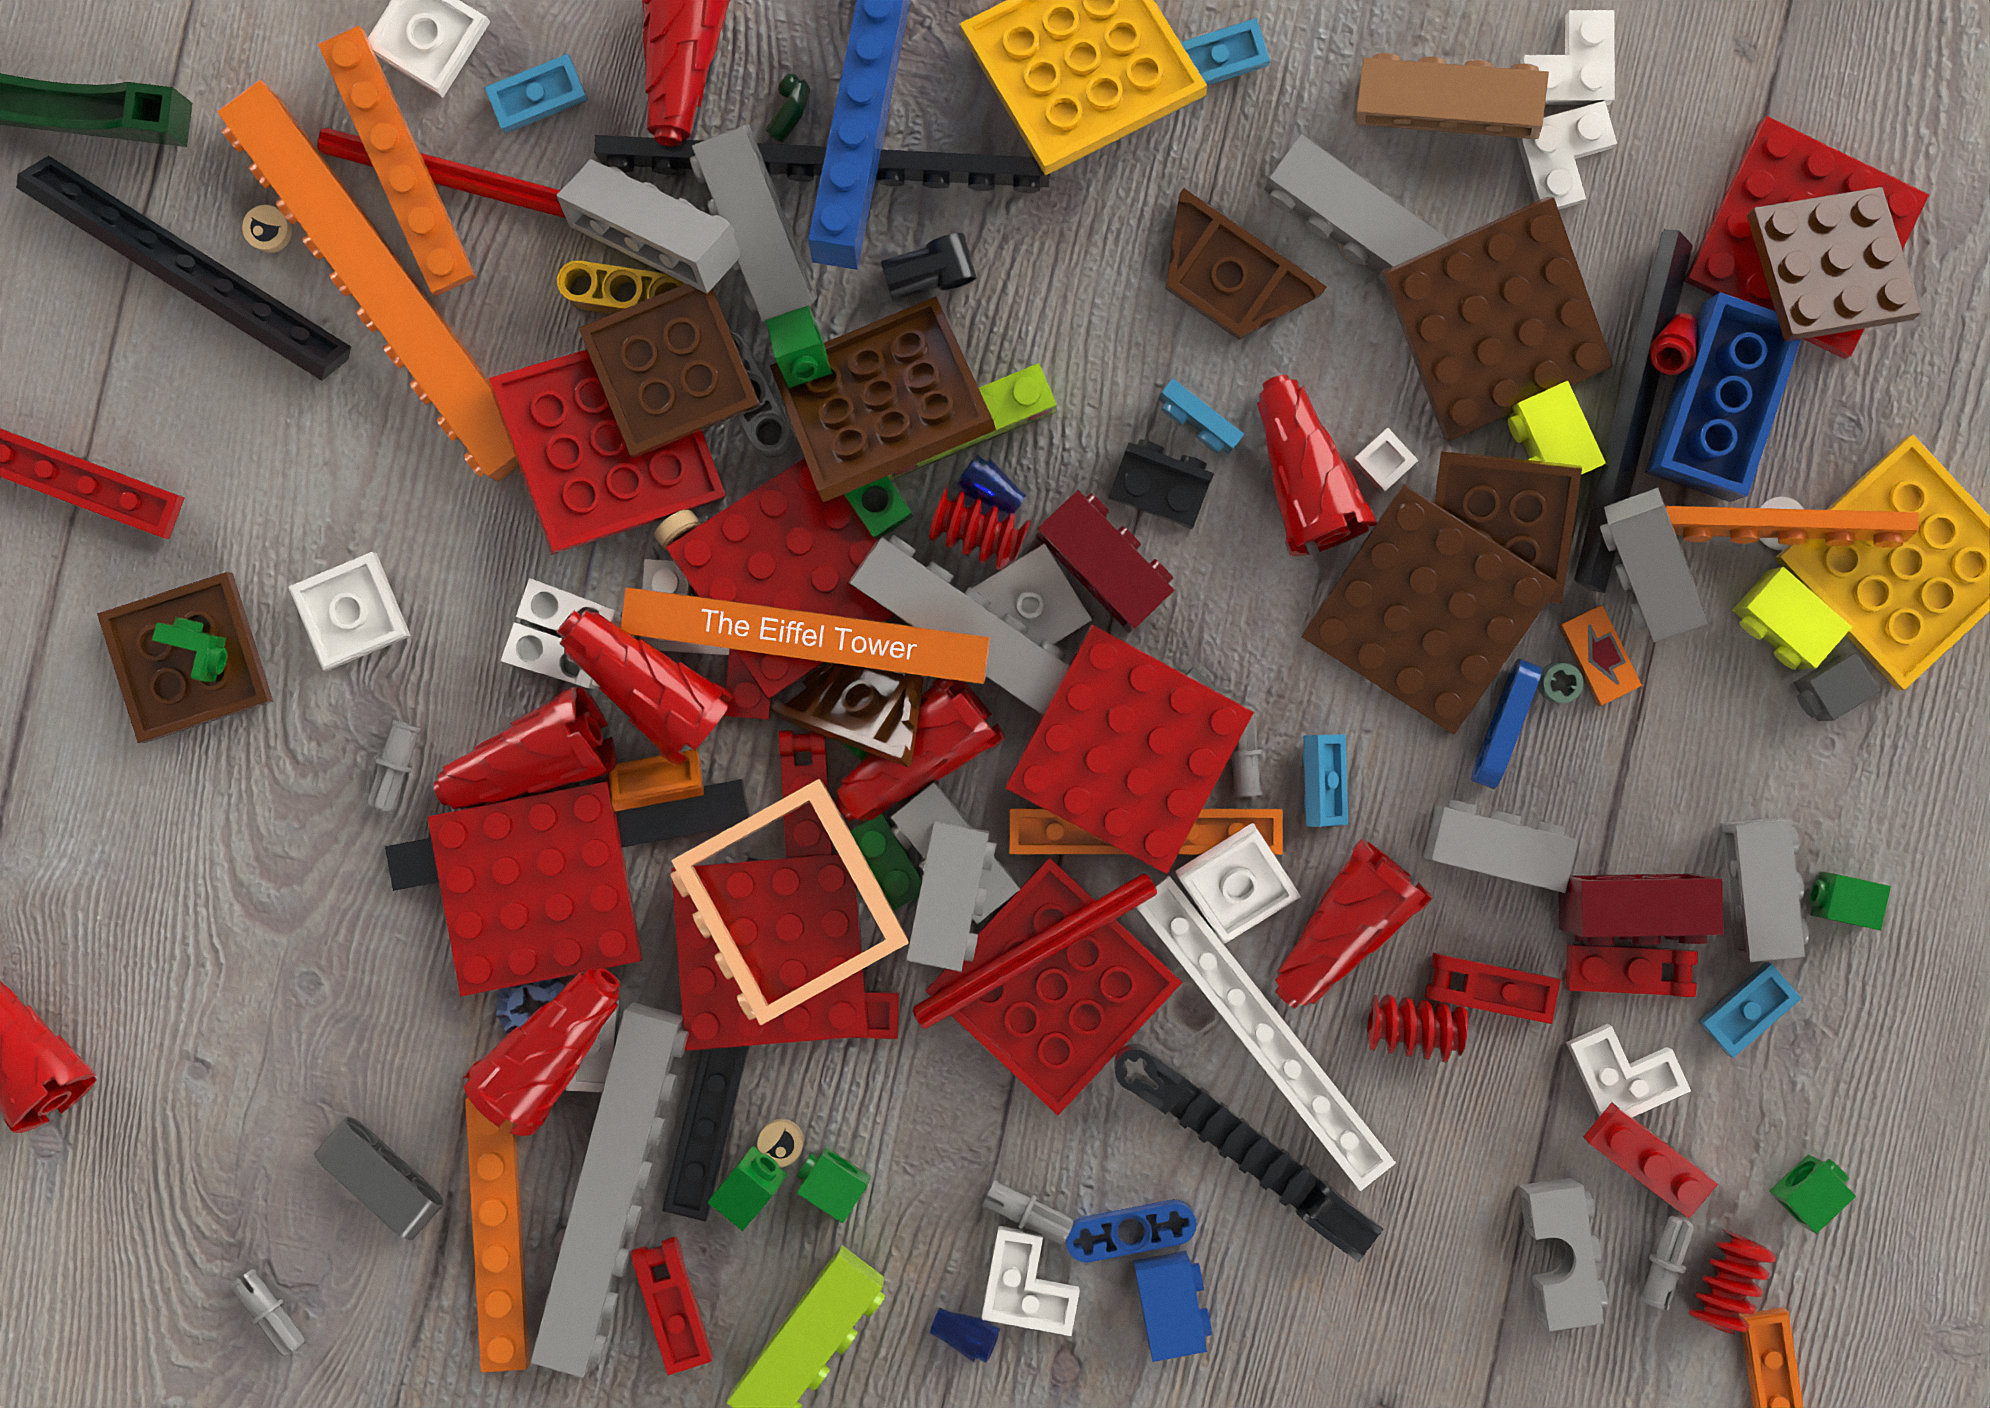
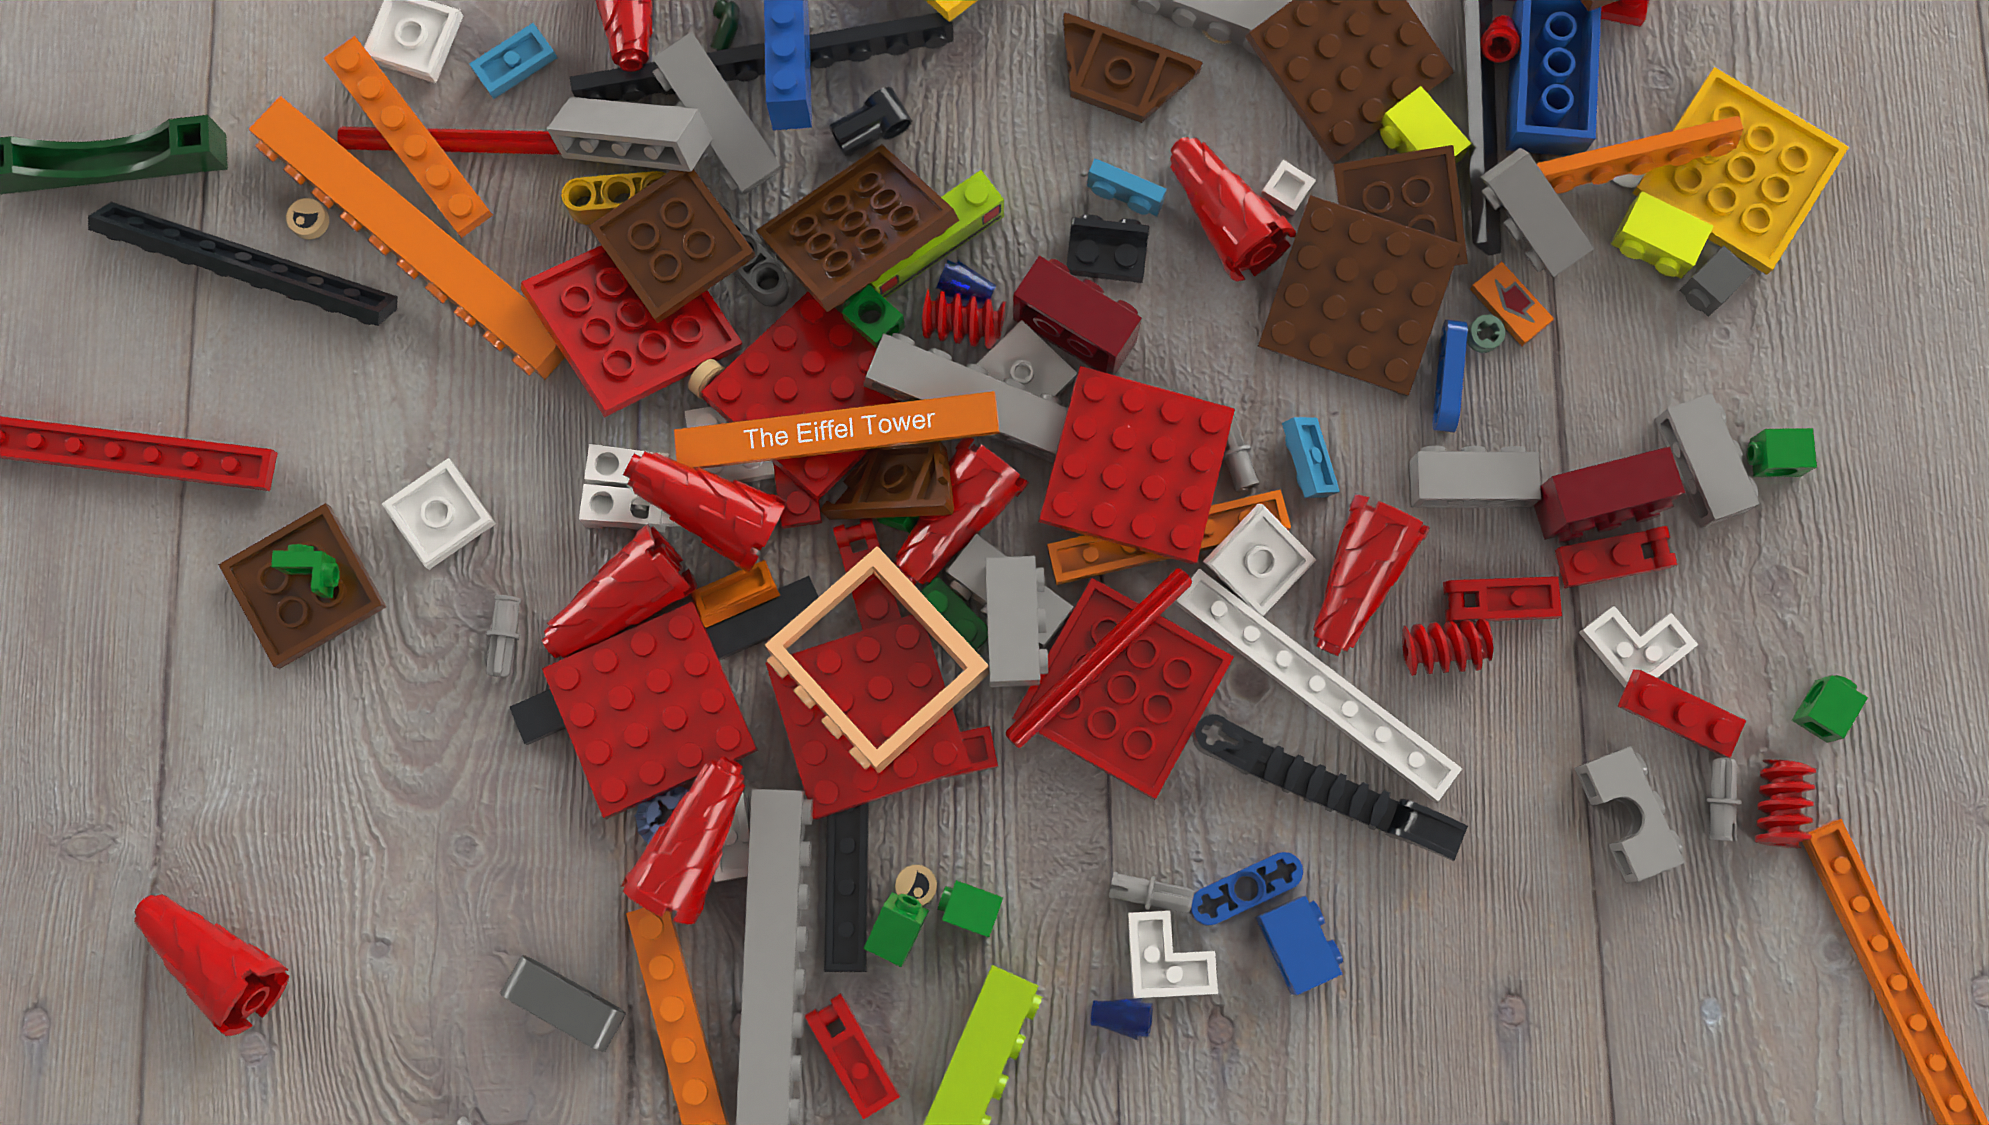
camera: 15 degrees left, 10 degrees down
(798, 346) = (777, 204): green brick -> none
(1749, 1009) = (1726, 565): dark azure plate -> none

